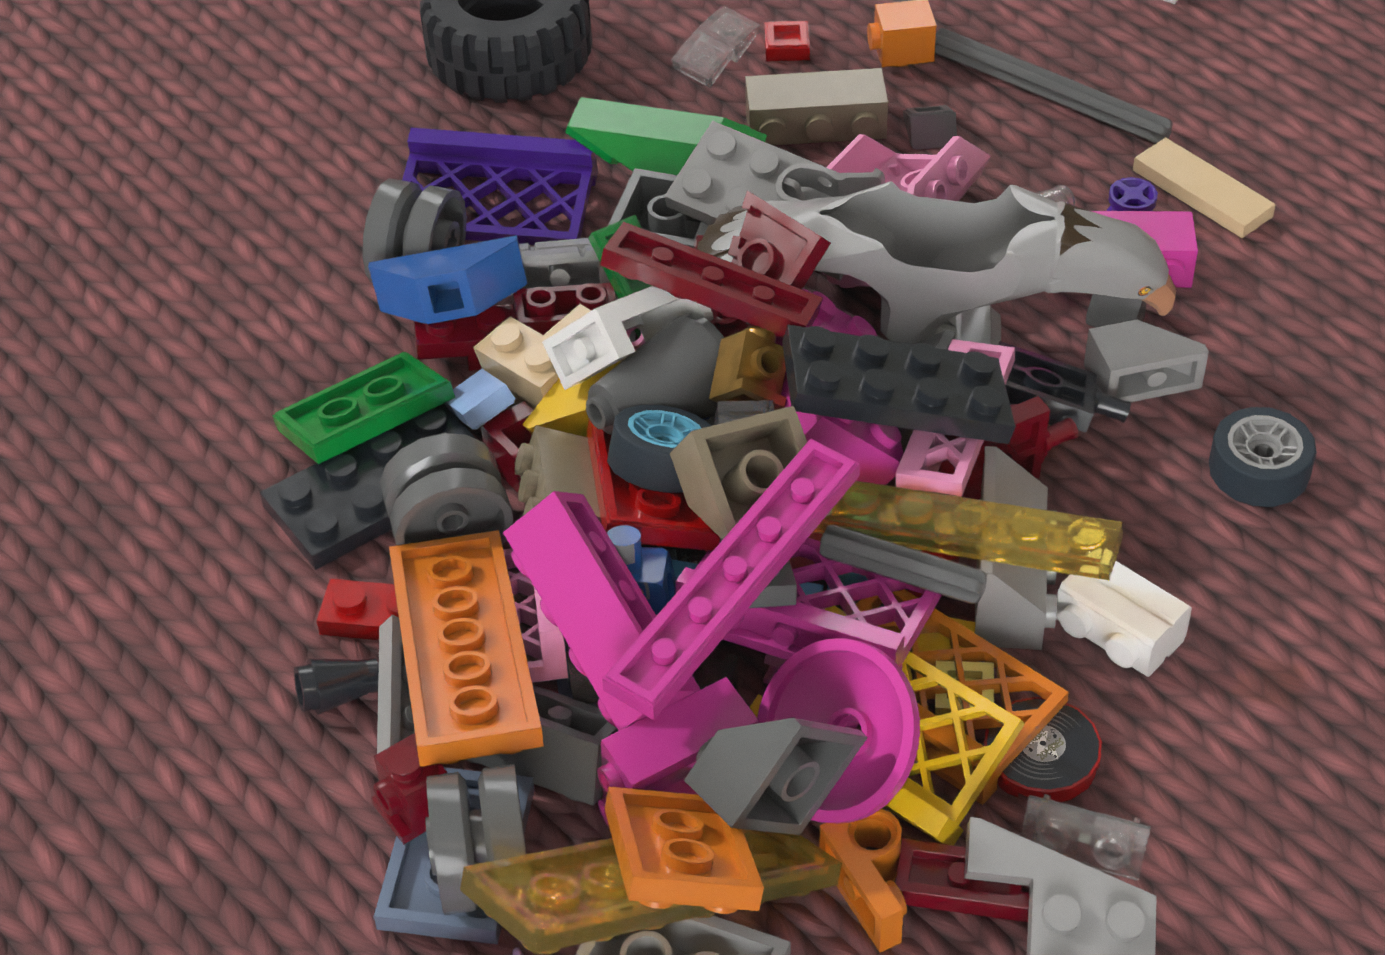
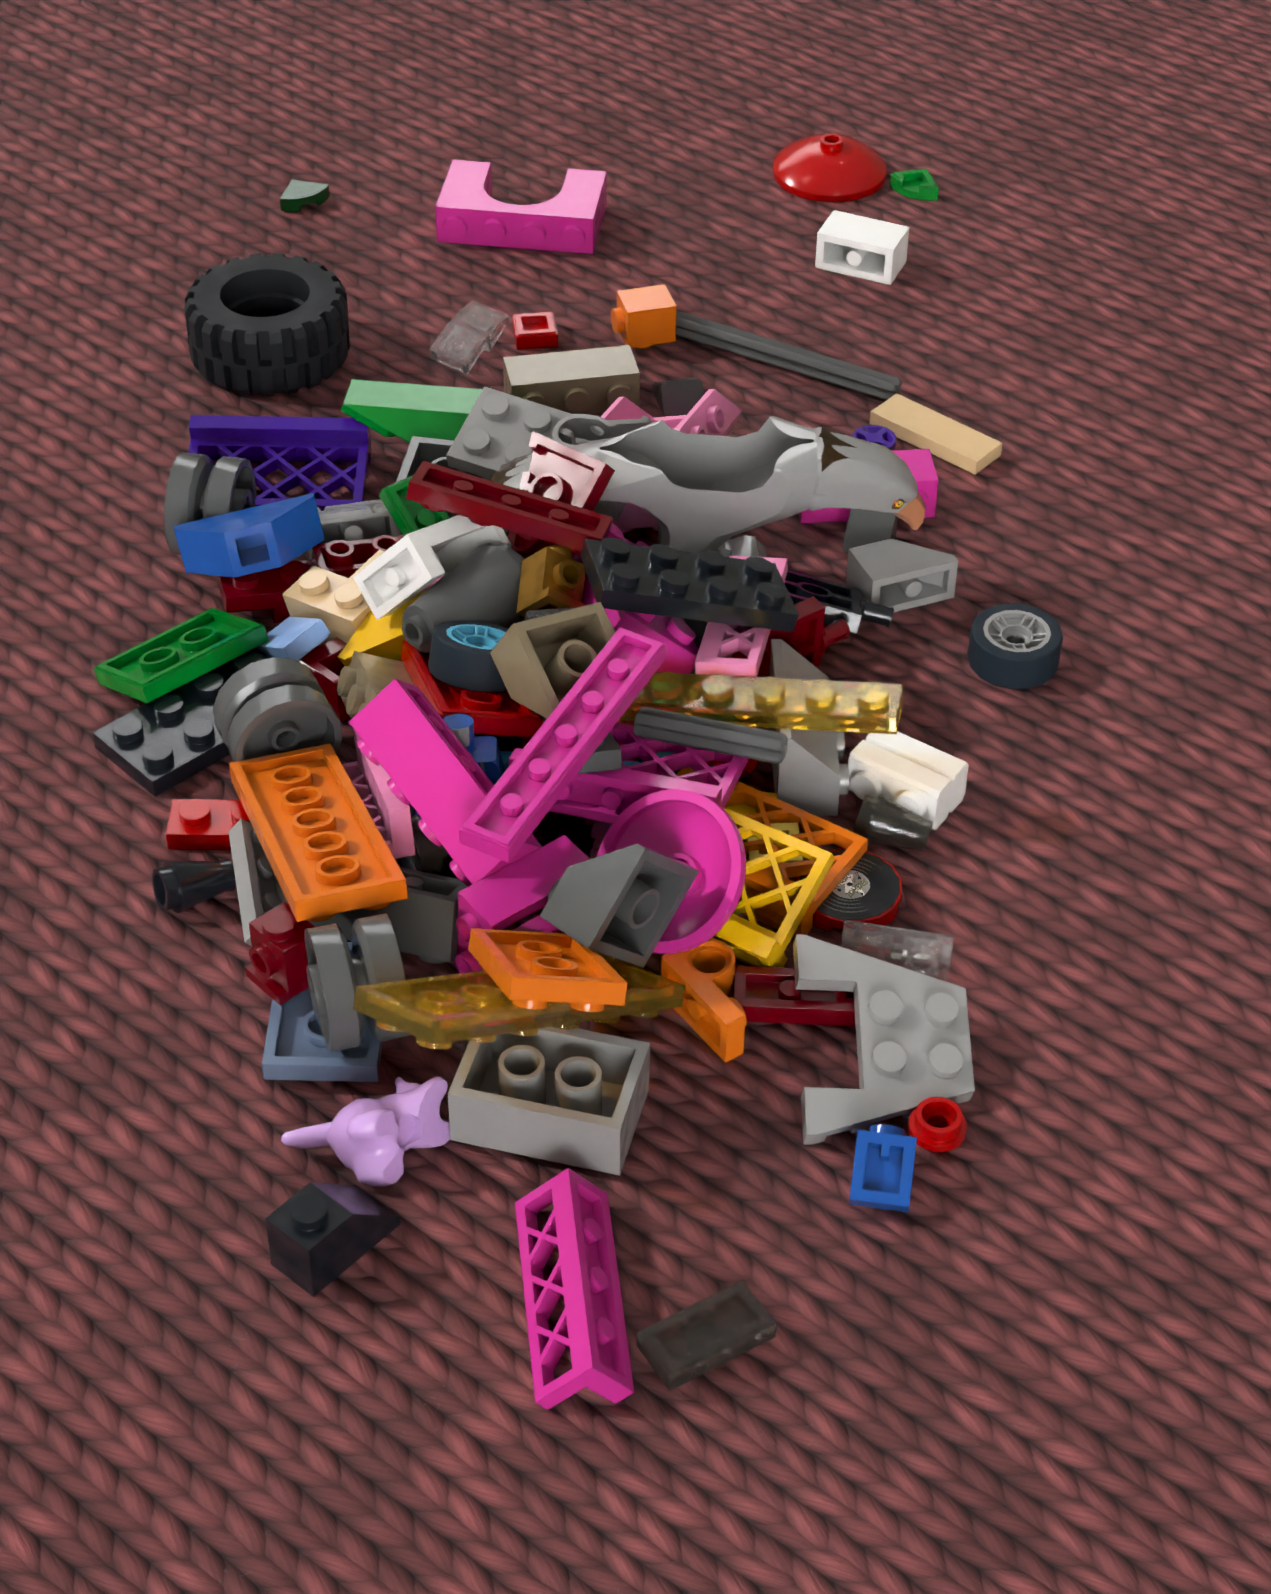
camera: 10 degrees left, 5 degrees down
(1098, 671) = (891, 824): none -> clear smoke cone

